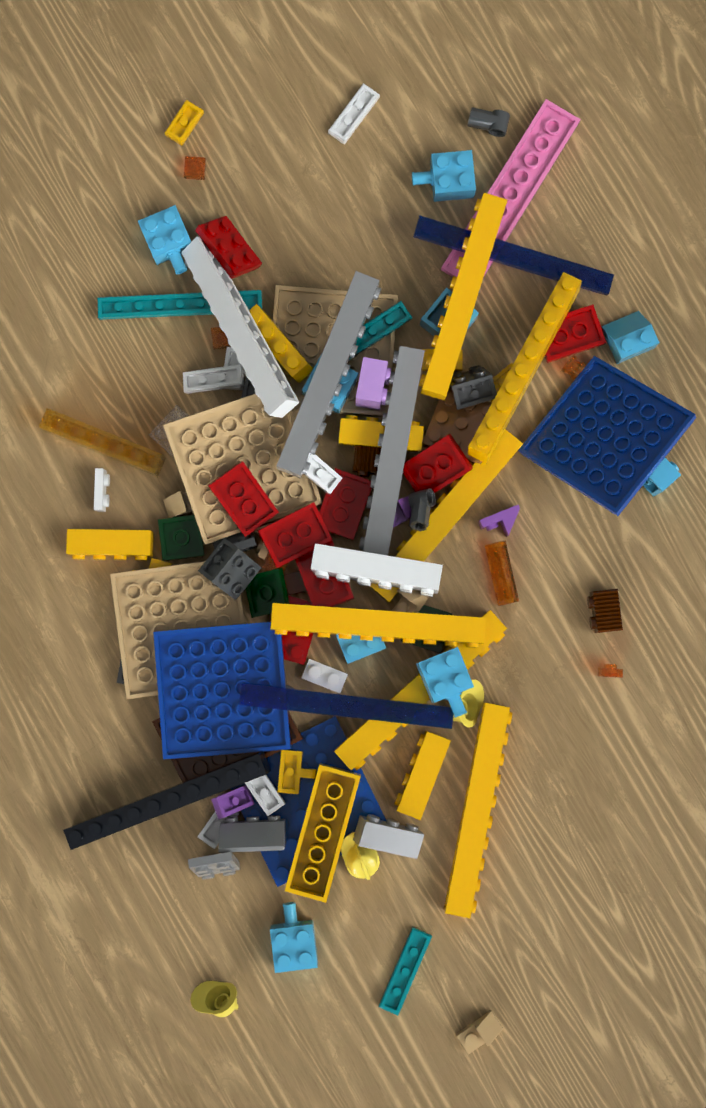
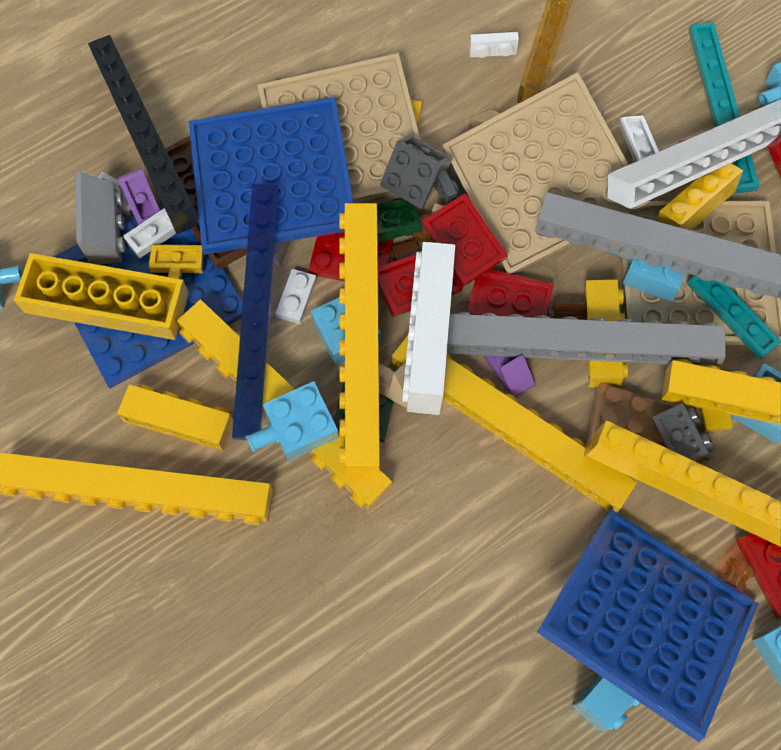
camera: 90 degrees right, 15 degrees down
(105, 543) = (434, 59): yellow brick -> none
(180, 538) = (445, 124): dark green plate -> none
(214, 864) = (64, 181): light grey plate -> none
(243, 498) = (502, 174): red plate -> none
(322, 474) = (545, 261): white plate -> none
(360, 861) = (75, 350): light yellow piece -> none
(371, 383) = (669, 302): lavender brick -> none
(388, 836) = (96, 377): brick -> none
(421, 502) = (514, 383): dark grey piece -> none
(437, 465) = (572, 399): red plate -> none
(473, 702) = (269, 467): light yellow piece -> none
(501, 573) = (442, 498): clear orange plate -> none
(505, 517) = (517, 497): medium lavender slope -> none
(605, 611) = (403, 641): reddish brown brick -> none
(610, 671) = (320, 654): clear orange plate -> none

